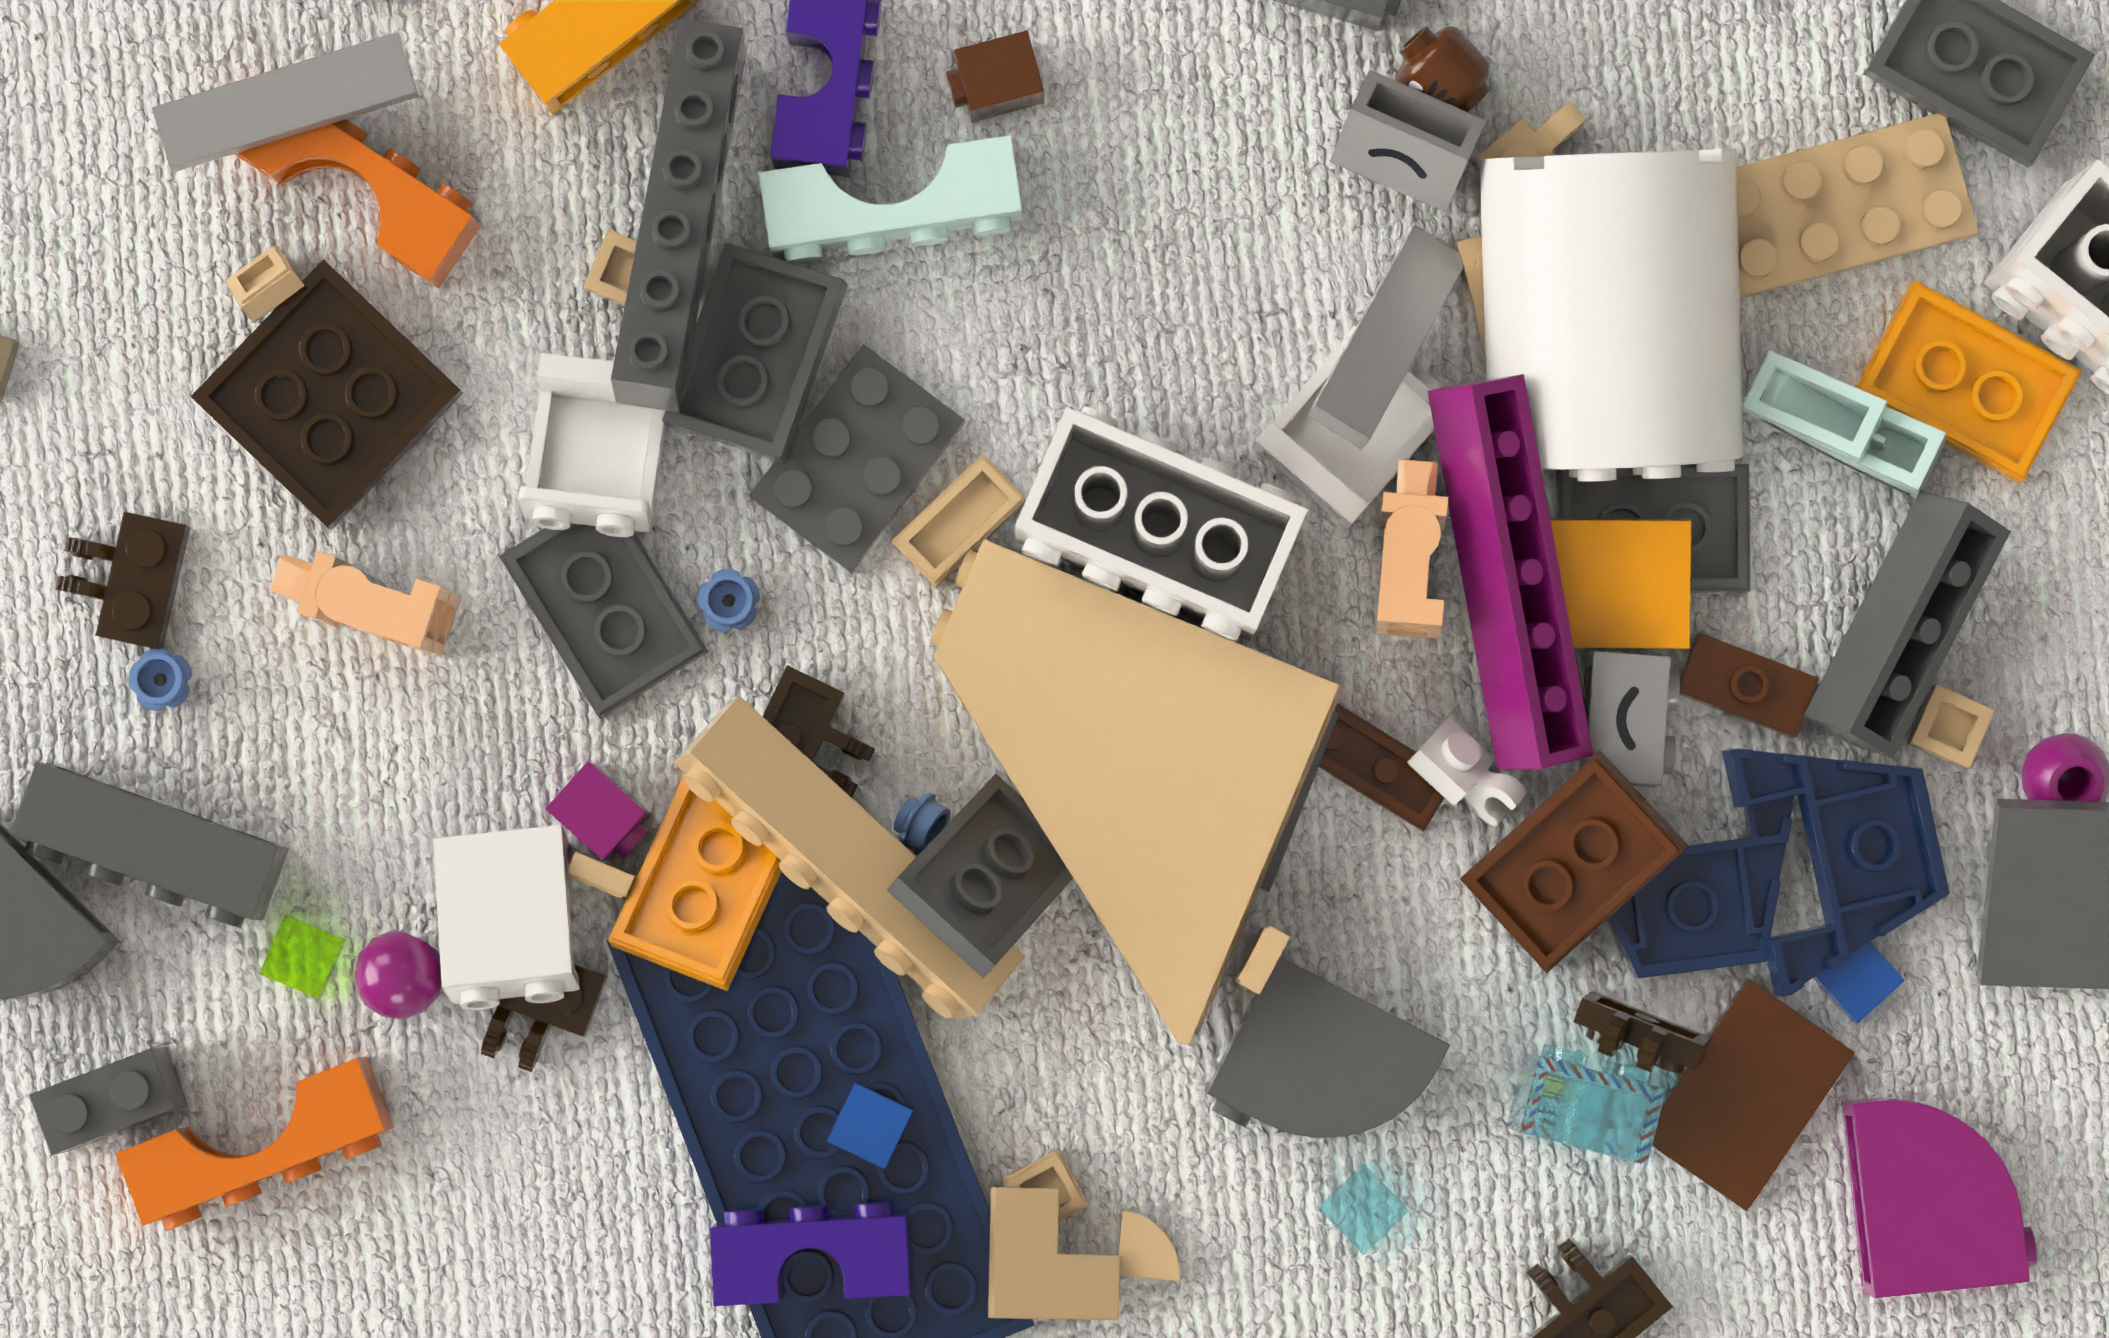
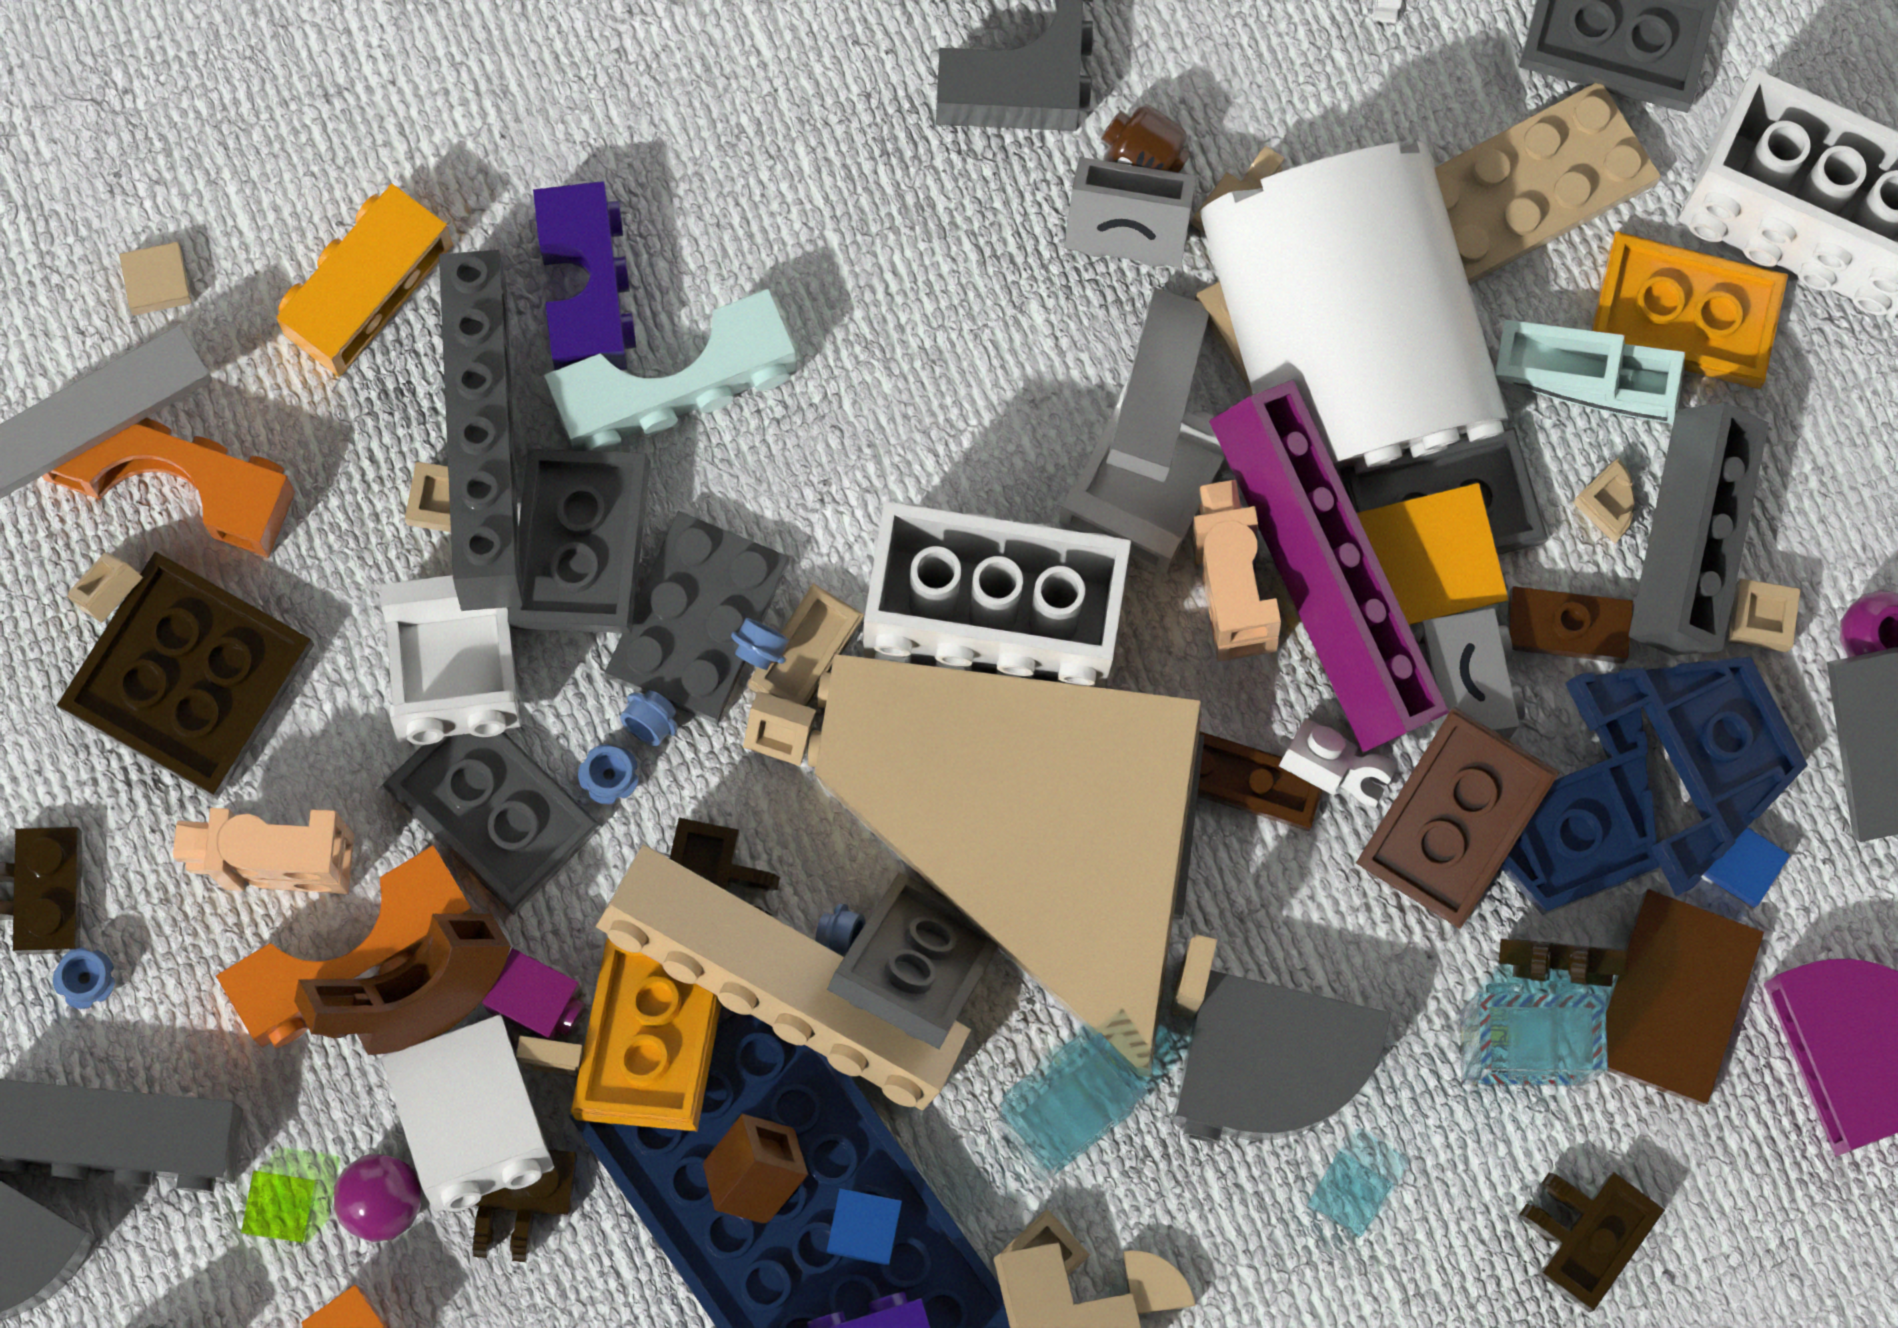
camera: 20 degrees left, 10 degrees down
(482, 787) = (420, 997): none -> reddish brown arch
(504, 693) = (266, 981): none -> orange arch
(775, 1042) = (754, 1169): none -> reddish brown panel
(783, 552) = (649, 717): none -> medium blue plate
(911, 507) = (760, 644): none -> medium blue plate
(911, 597) = (779, 728): none -> tan plate
(996, 77) = (741, 245): reddish brown brick -> none
(1103, 1060) = (1069, 1107): none -> clear light blue brick
(1826, 565) = (1609, 501): none -> tan tile

